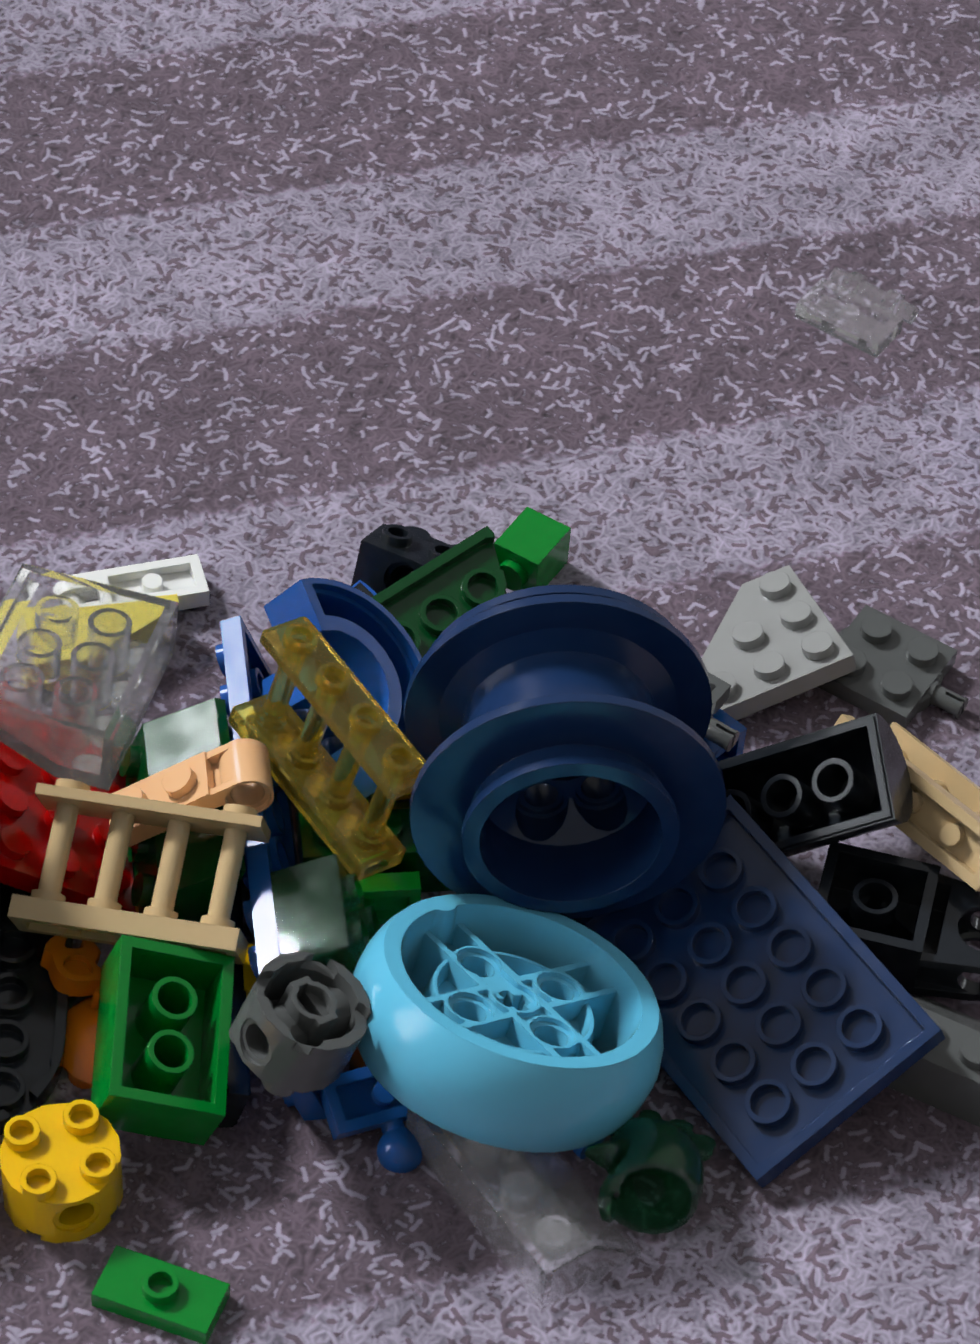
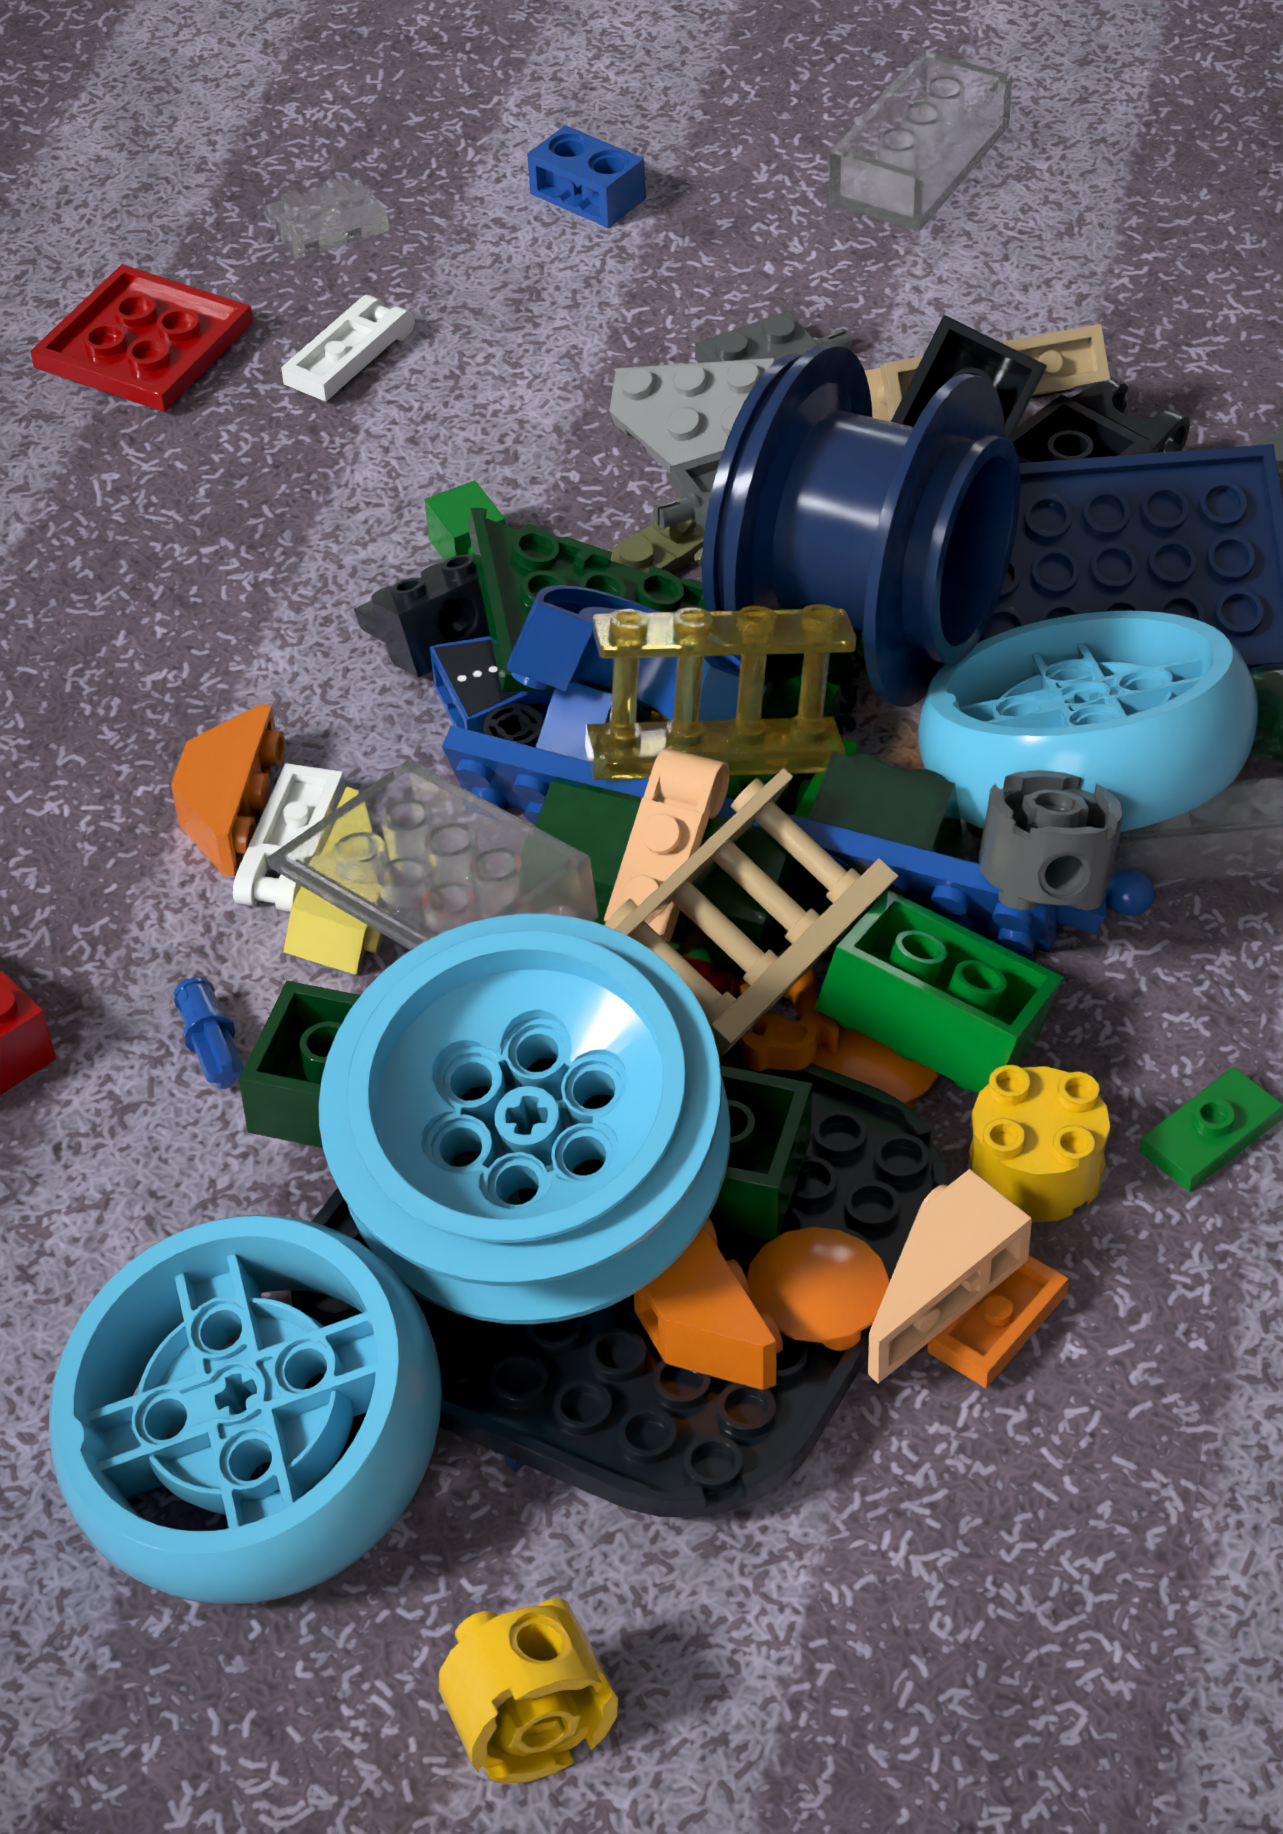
camera: 55 degrees left, 0 degrees up
(159, 526) = (225, 782): none -> orange slope
(624, 269) = (142, 337): none -> red plate
(706, 392) = (346, 347): none -> white plate

